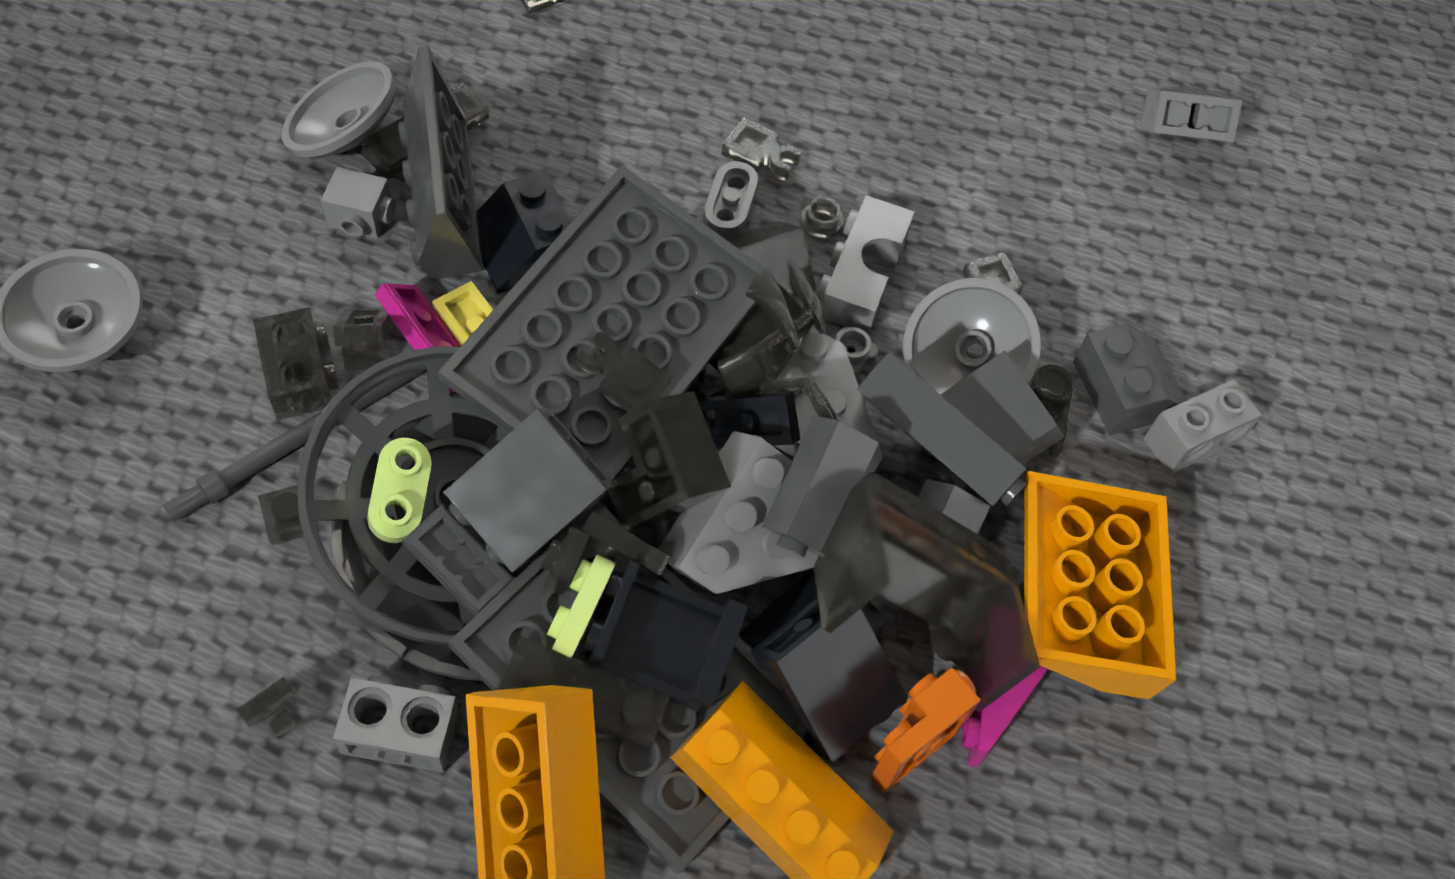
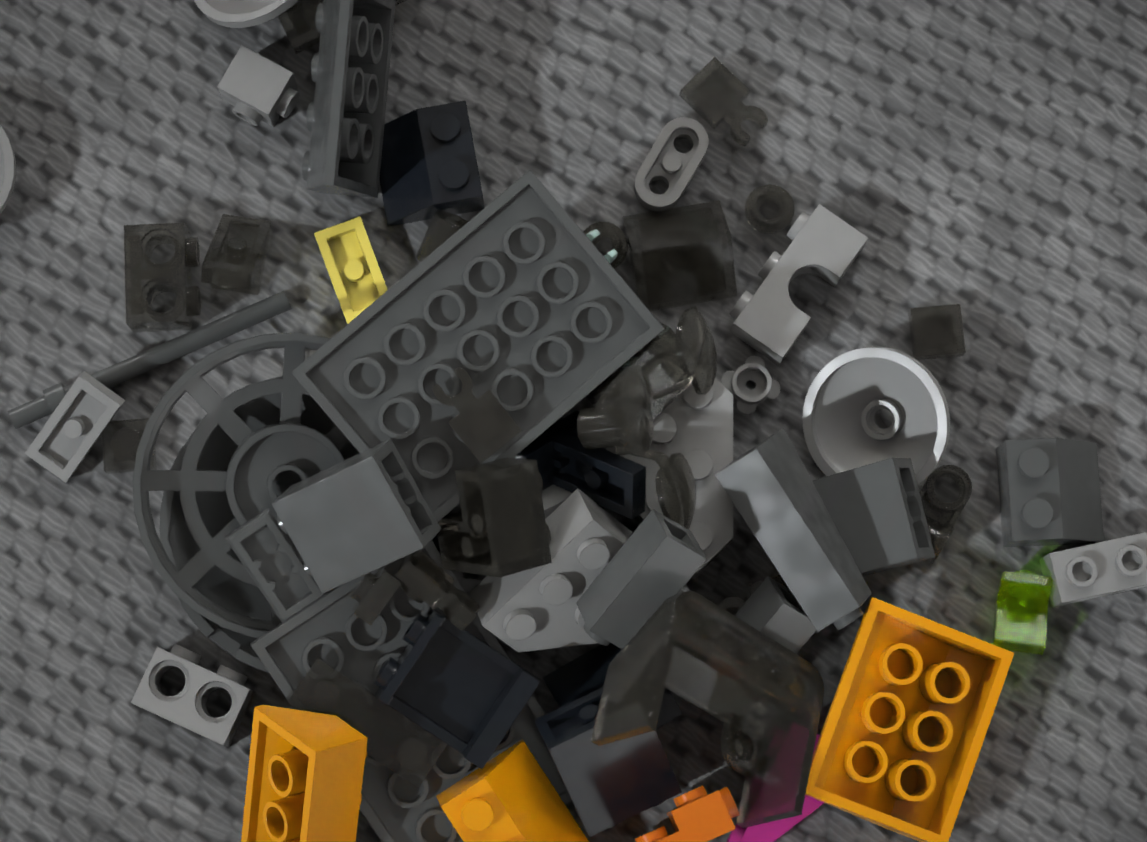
camera: 20 degrees right, 20 degrees up
(231, 501) = (74, 426): none -> light grey plate
(269, 706) = (79, 650): clear smoke tile -> none
(399, 488) = (232, 483): yellowish green plate -> none
(415, 317) = (301, 269): dark pink tile -> none
(571, 623) = (367, 658): yellowish green plate -> none
(1148, 470) = (1022, 611): none -> clear neon green bracket

